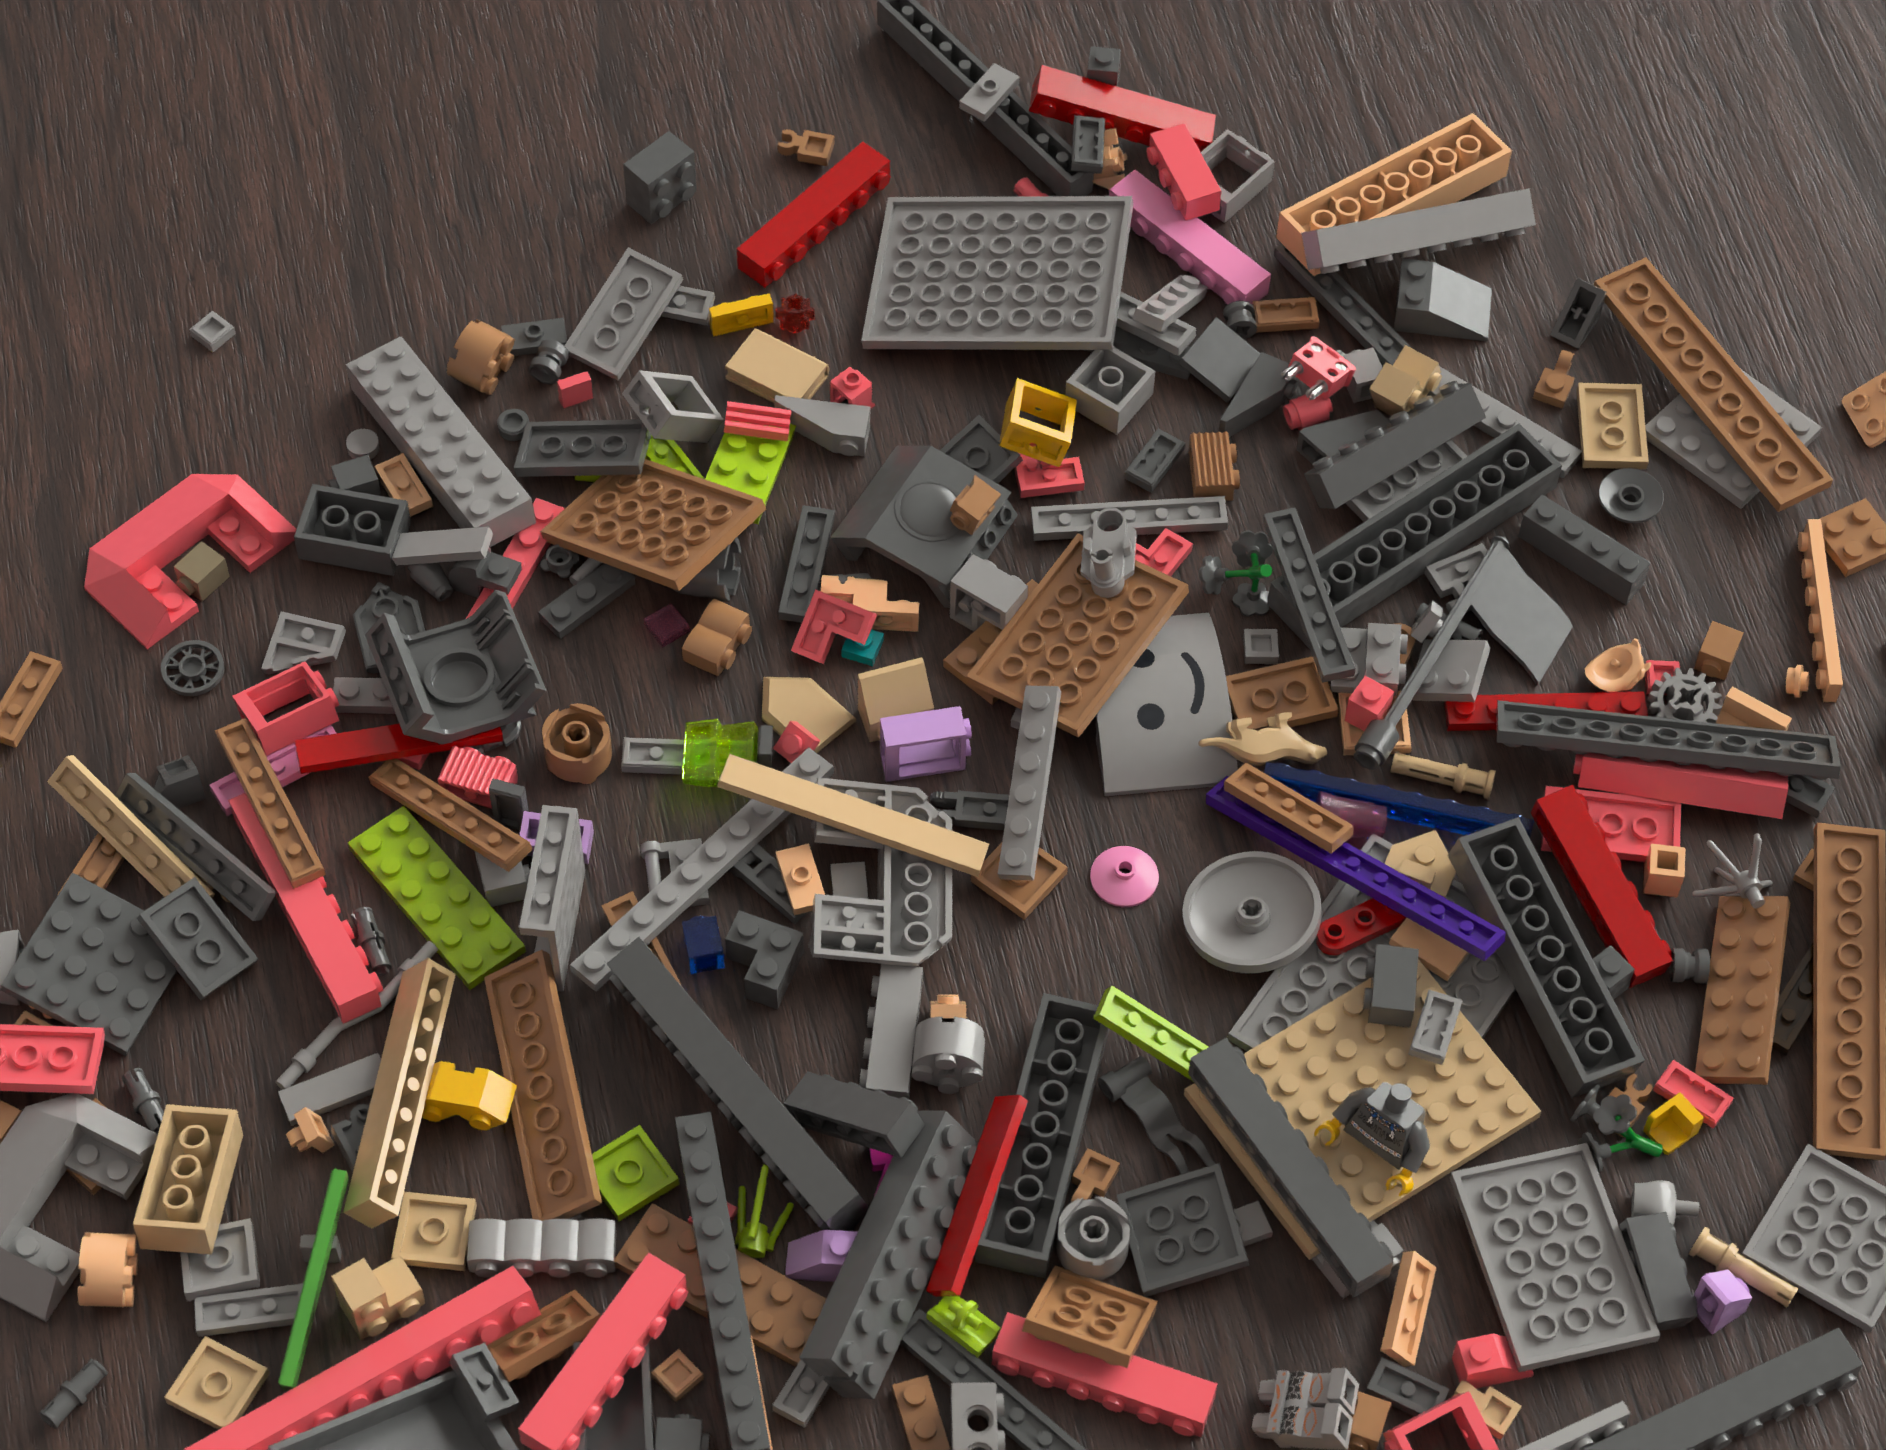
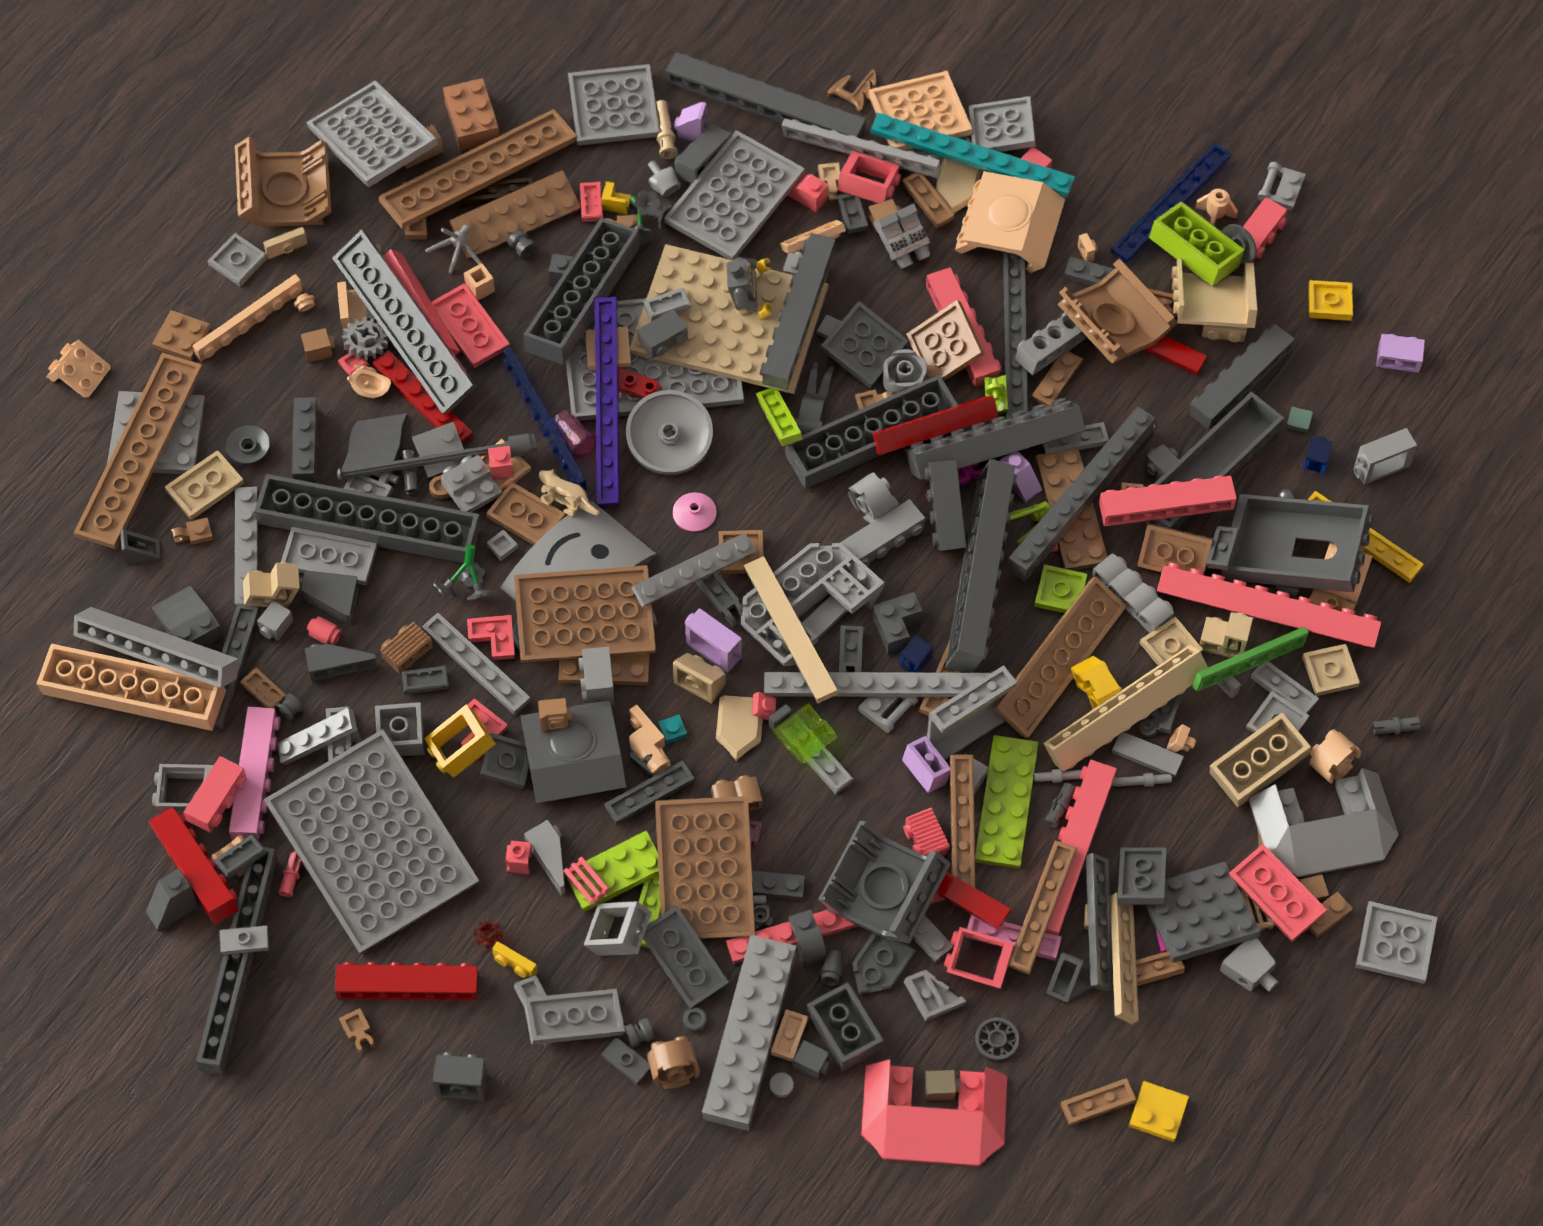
camera: 130 degrees left, 5 degrees up
(145, 1099) = (1238, 829): dark grey pin -> none
(442, 546) = (817, 959): light grey tile -> none
(508, 803) = (932, 796): dark grey tile -> none
(575, 389) = (645, 1002): coral tile -> none
(577, 743) = (865, 790): medium nougat brick -> none
(775, 368) = (534, 912): tan piece -> none
(799, 877) = (841, 636): light nougat plate -> none
(824, 620) = (678, 745): coral plate -> none
(948, 1007) = (850, 516): light nougat plate -> none
(1108, 552) = (524, 629): light grey piece -> none
(1220, 359) = (325, 694): dark grey tile -> none
(1288, 808) = (600, 449): medium nougat plate -> none
(1309, 595) = (464, 523): dark grey plate -> none
(1320, 369) = (299, 630): coral piece -> none
(1394, 445) = (323, 557): dark grey brick -> none
(1424, 861) = (574, 380): tan plate -> none
(1428, 622) = (422, 474): light grey plate -> none
(1459, 777) = (501, 406): tan pin -> none
(1600, 883) = (513, 301): red brick -> none

